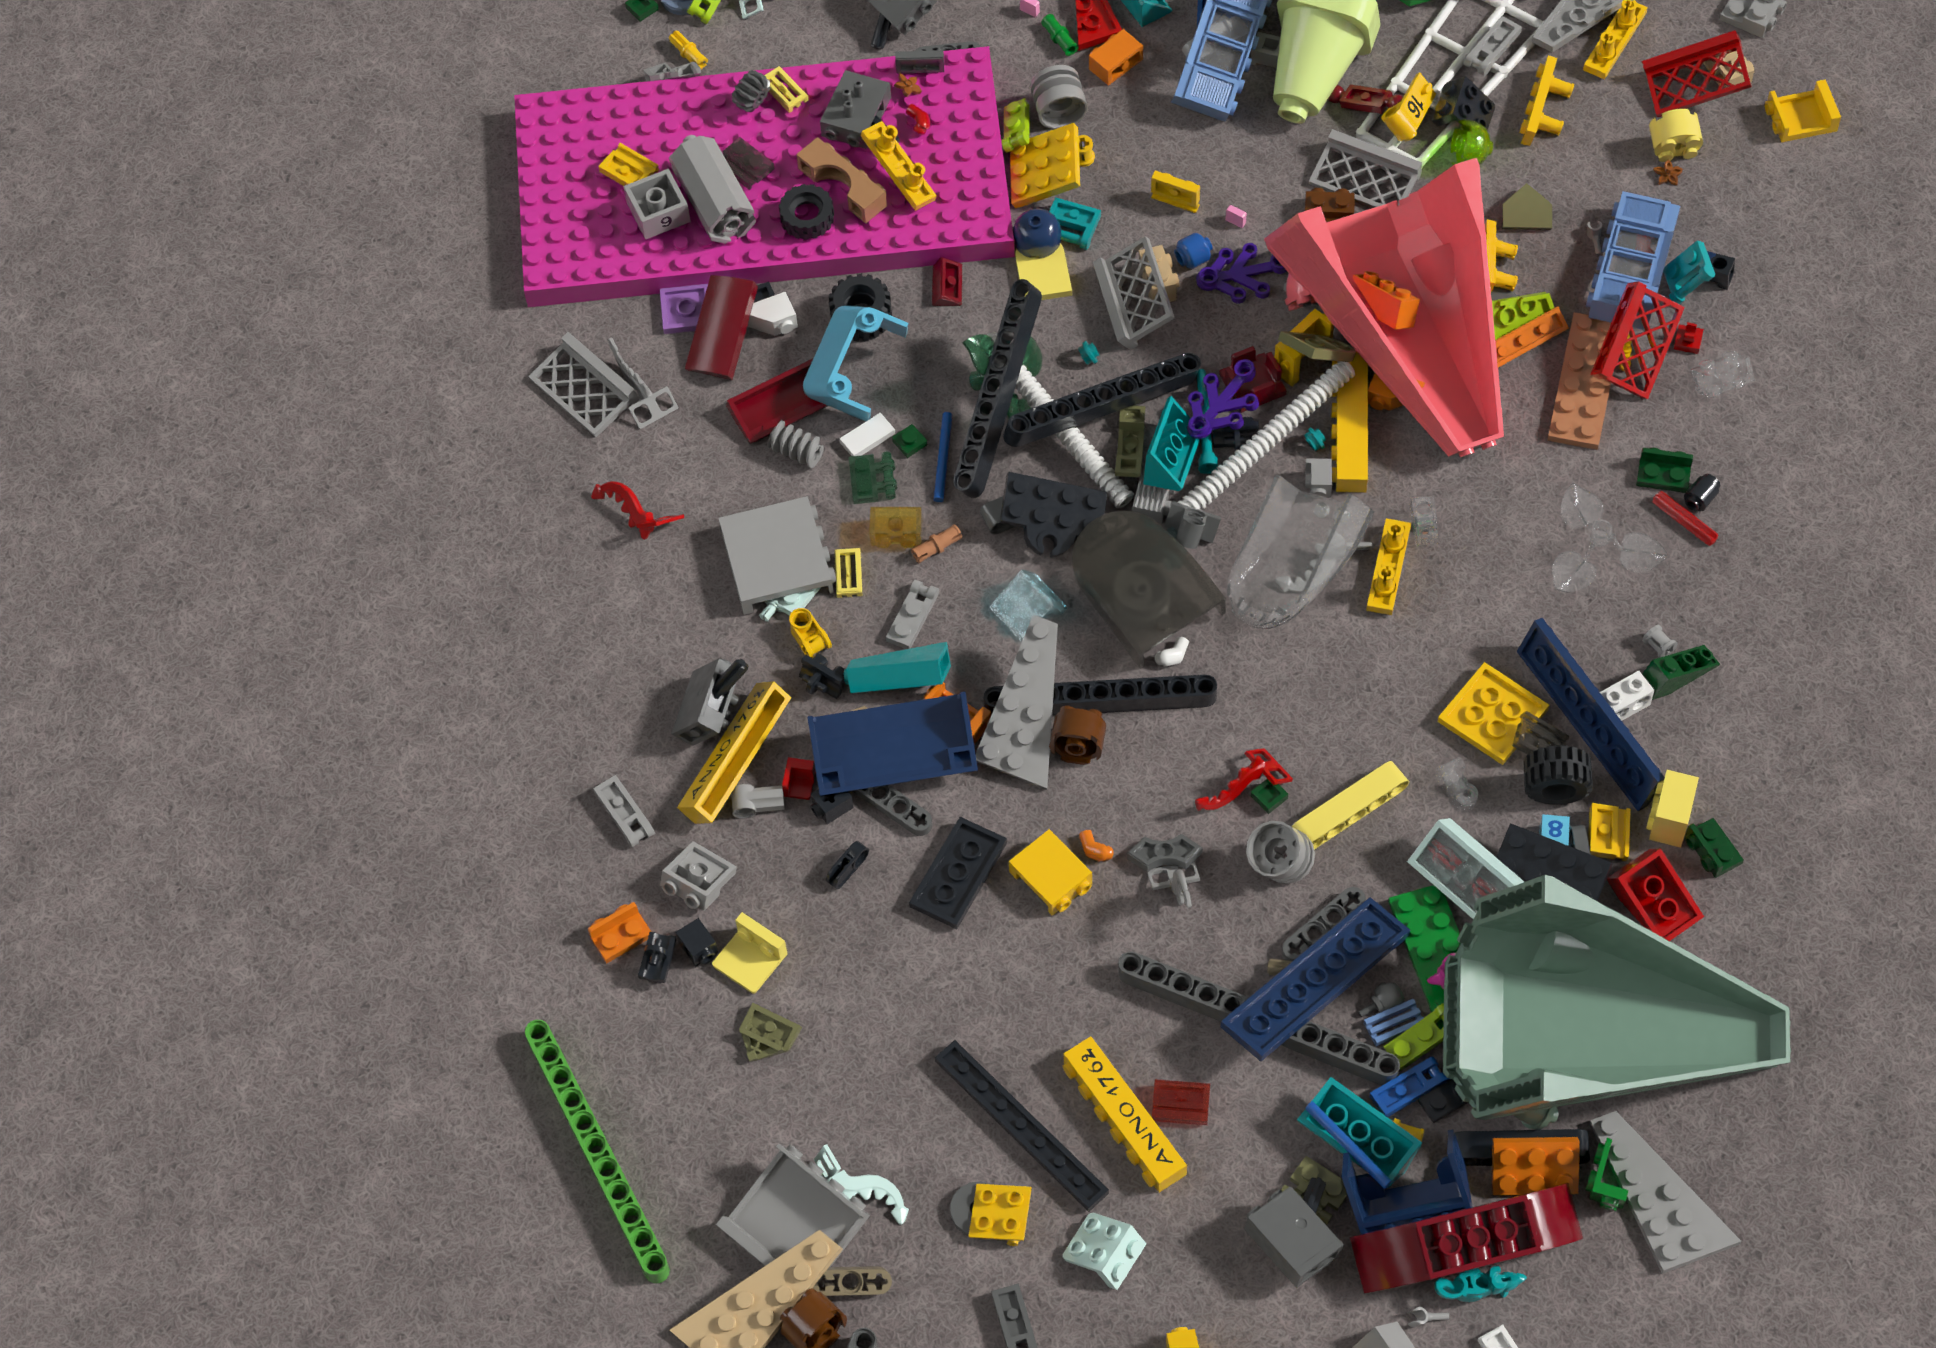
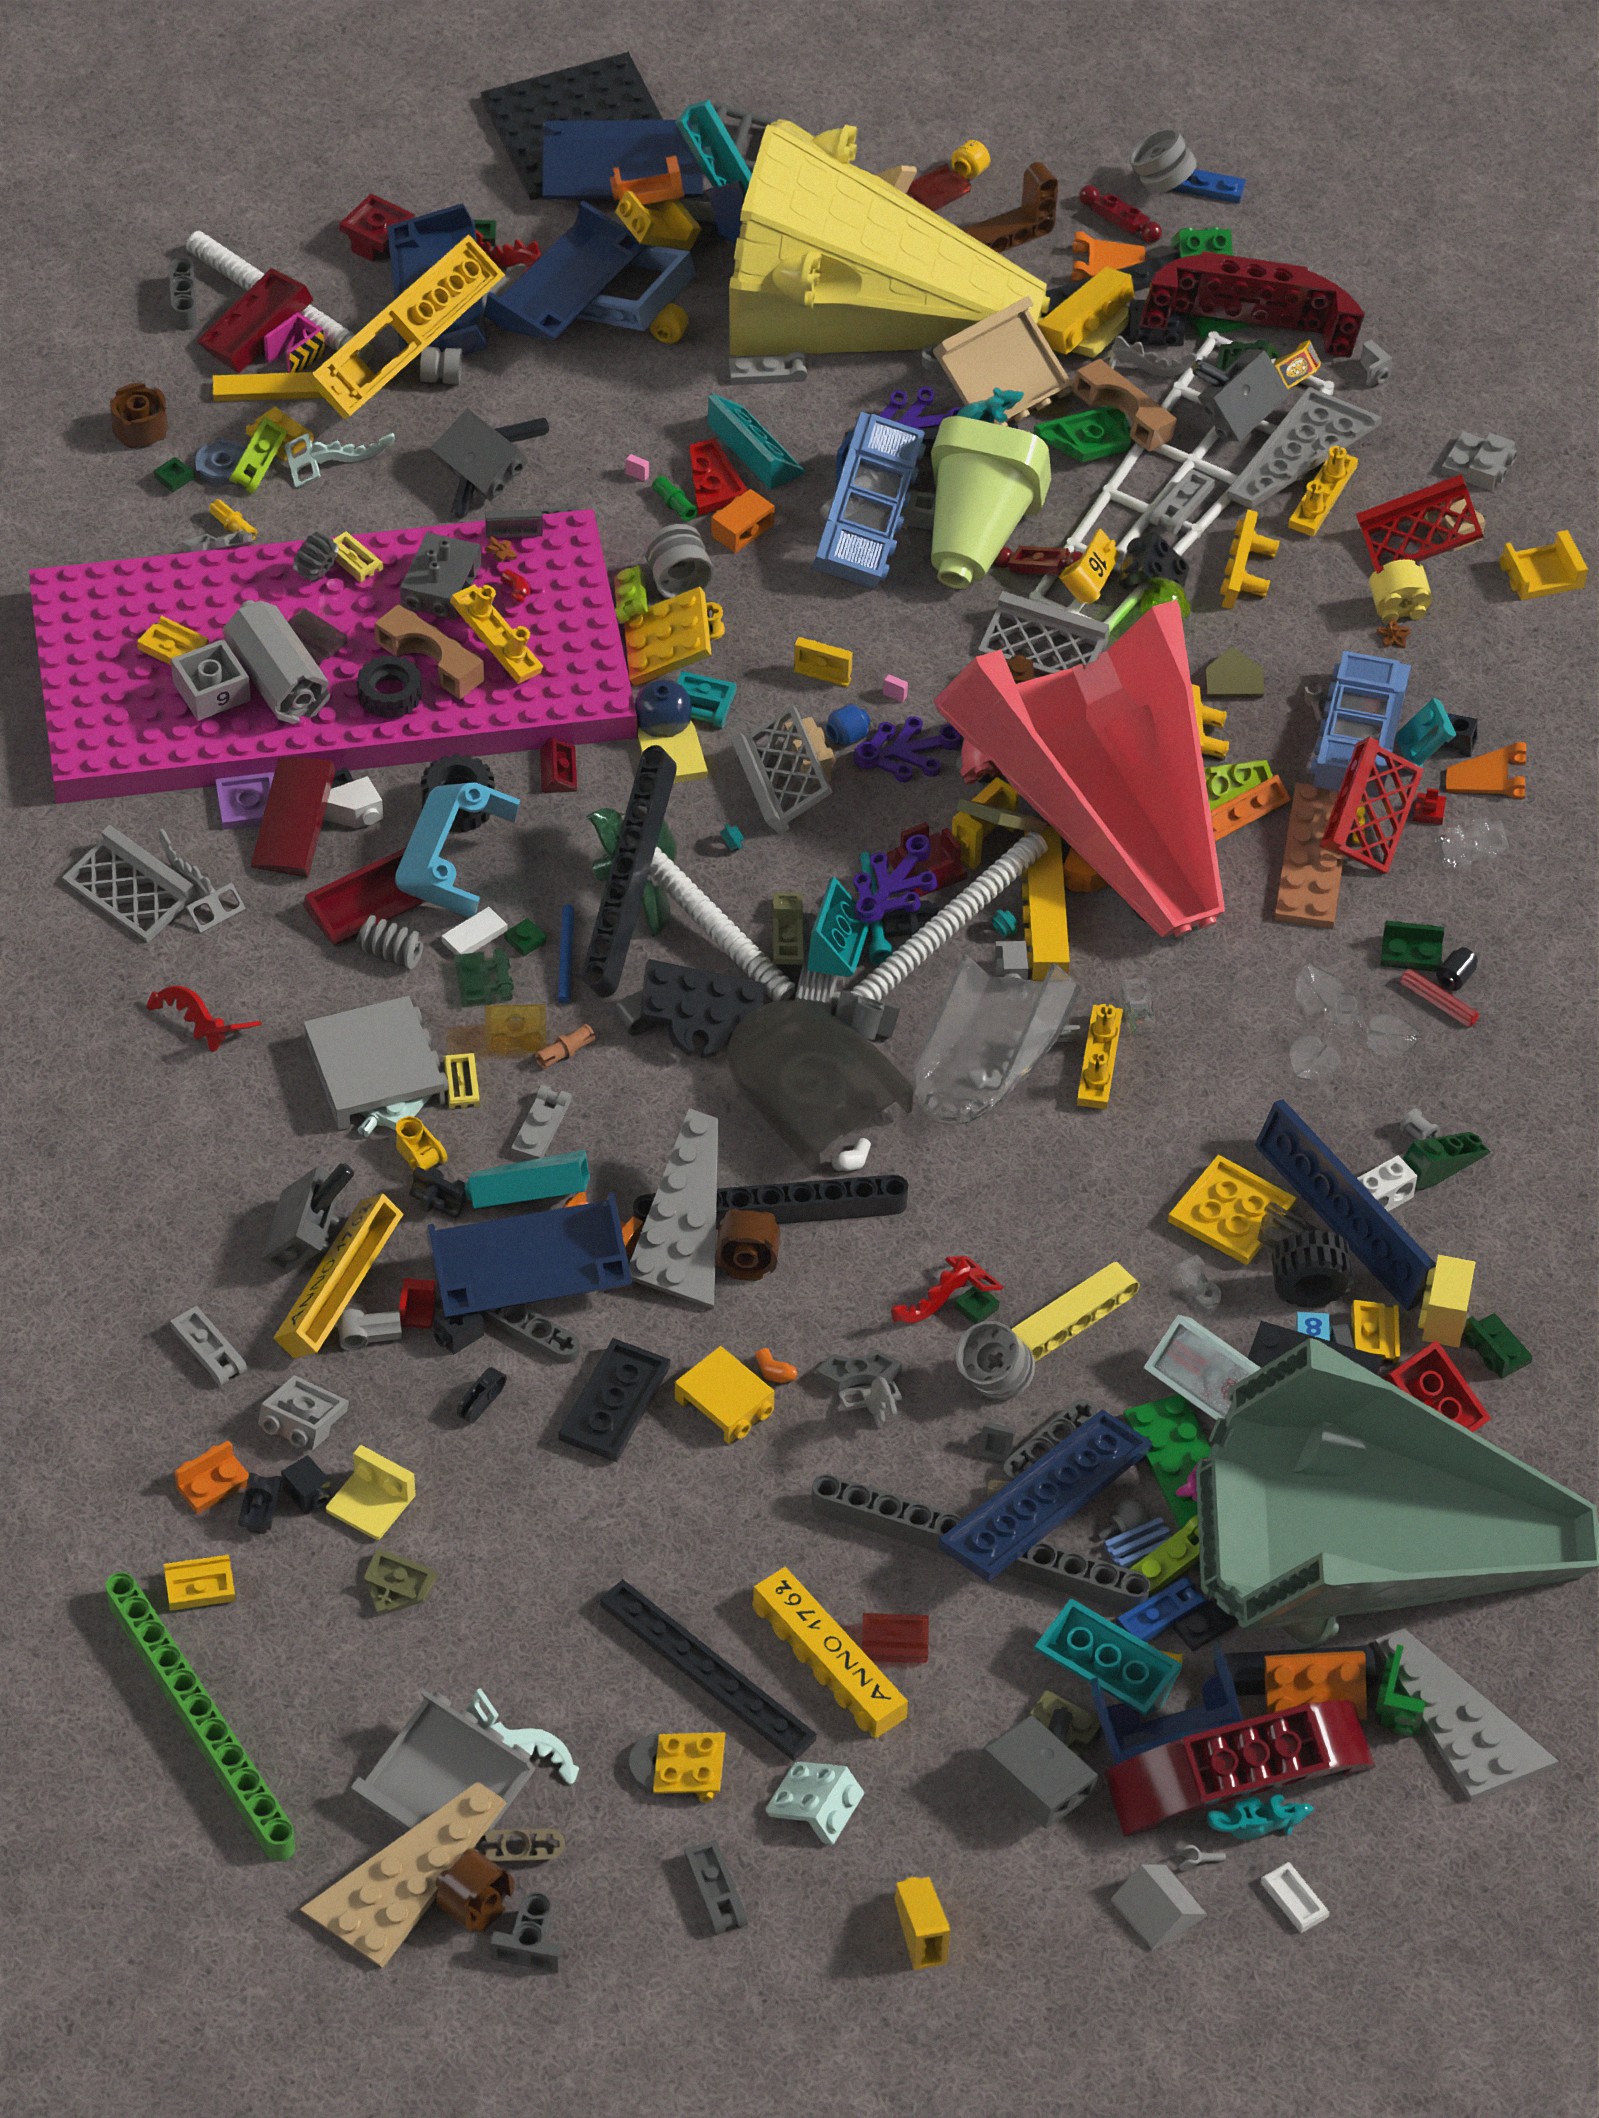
camera: 10 degrees left, 10 degrees down
(603, 1028) = (199, 1582): none -> yellow plate
(1022, 599) = (668, 1103): clear light blue bracket -> none
(1101, 399) = (752, 882): black beam -> none
(1278, 924) = (996, 1441): none -> dark grey tile
(1348, 1144) = (1096, 1669): blue bar -> none
(1390, 304) = (1089, 772): orange slope -> none
(1741, 307) = (1489, 773): none -> orange flag

